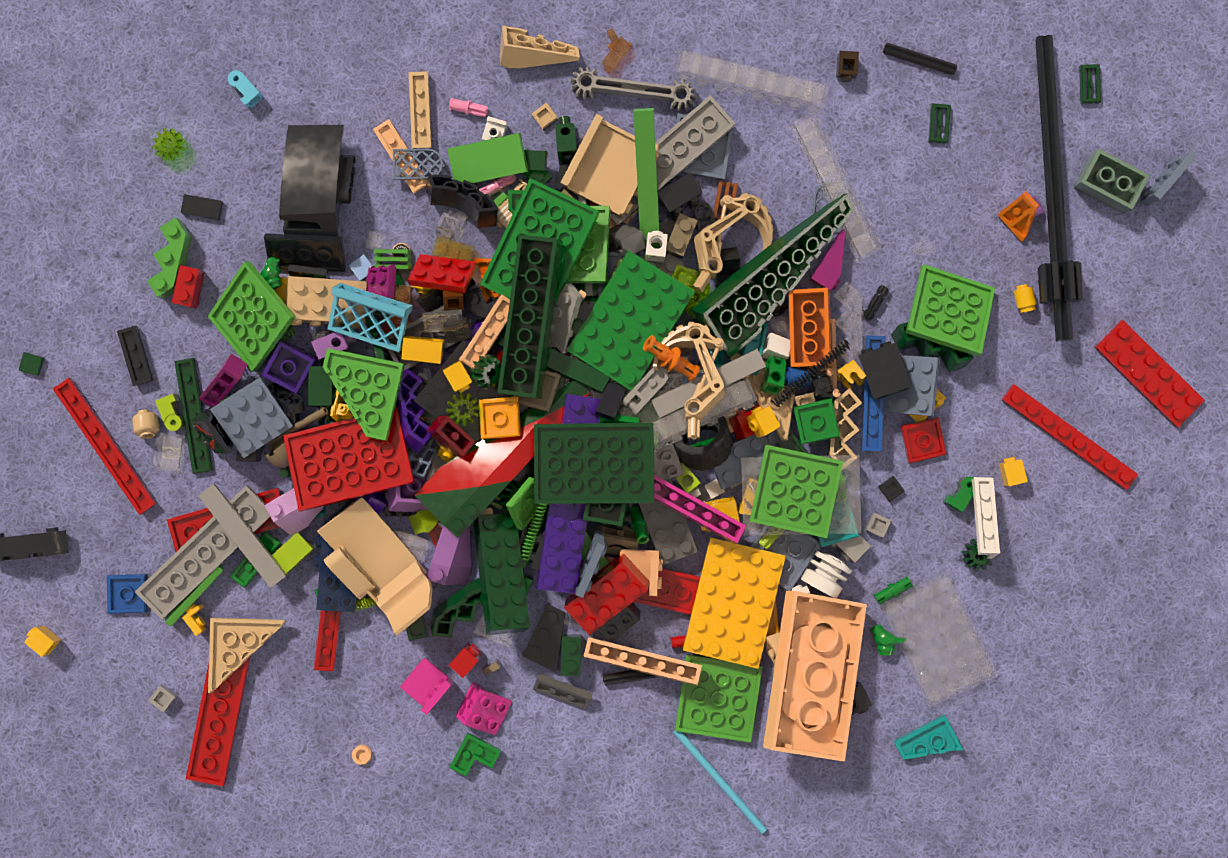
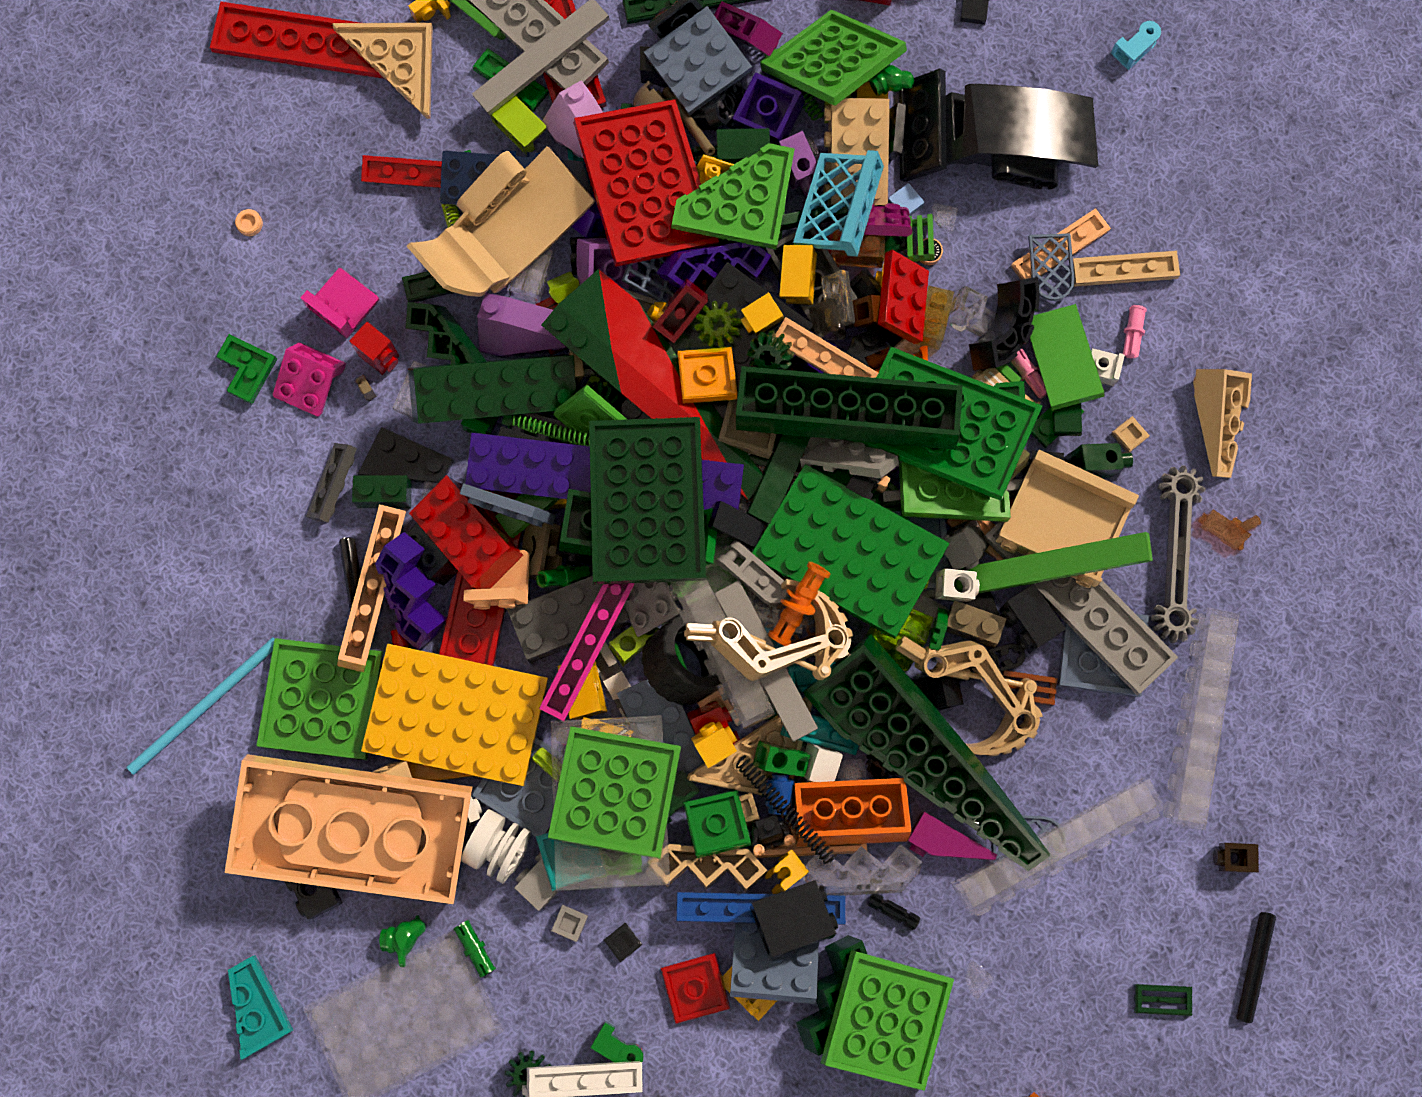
camera: 85 degrees right, 10 degrees down
(647, 635) = (408, 591): none -> dark purple brick
(686, 261) = (939, 629): none -> green tile

